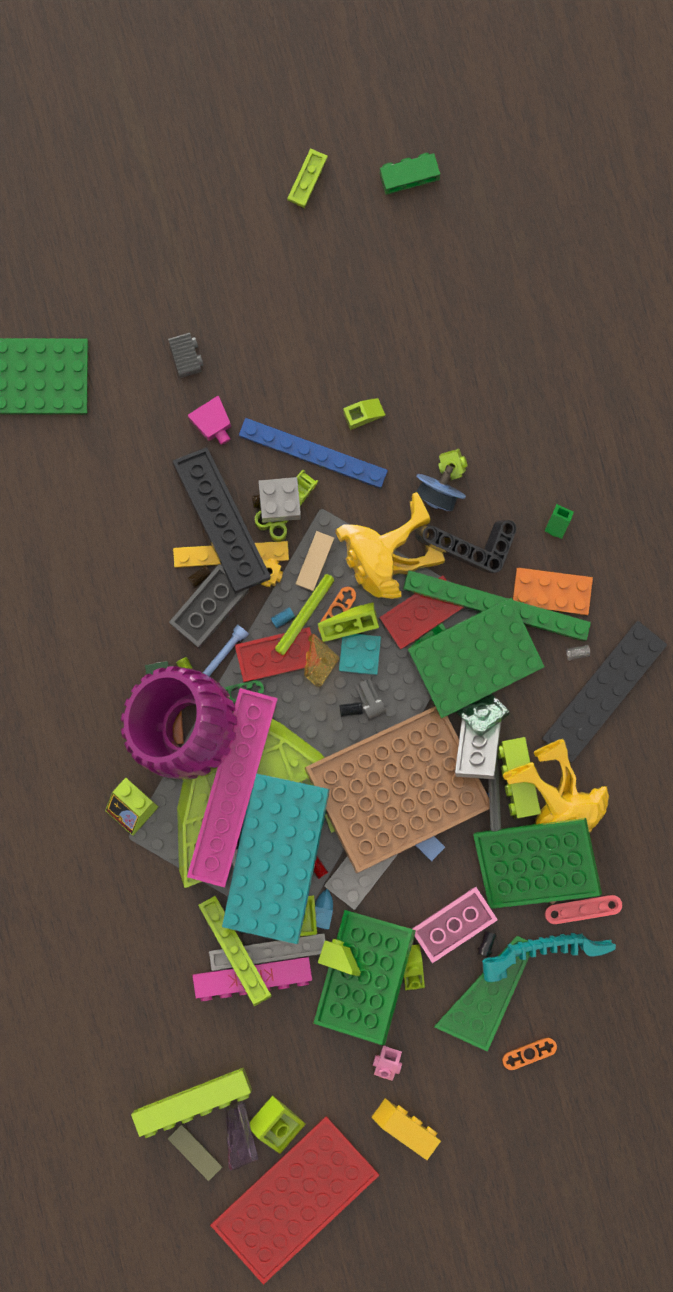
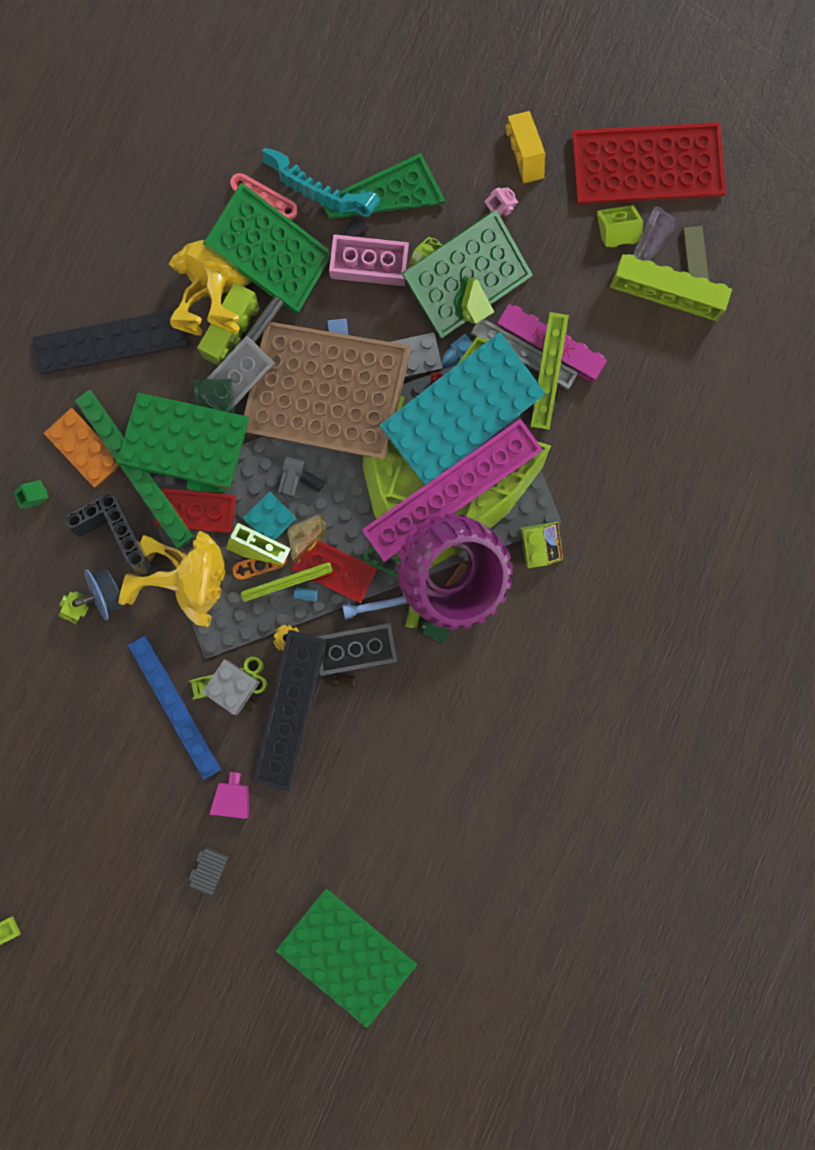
camera: 140 degrees left, 0 degrees up
(206, 555) = (324, 692): yellow plate -> none
(314, 561) = (244, 618): tan tile -> none
(363, 413) = (108, 706): lime slope -> none
(545, 1053) = (393, 136): orange beam -> none
(576, 652) = (103, 385): clear piece -> none

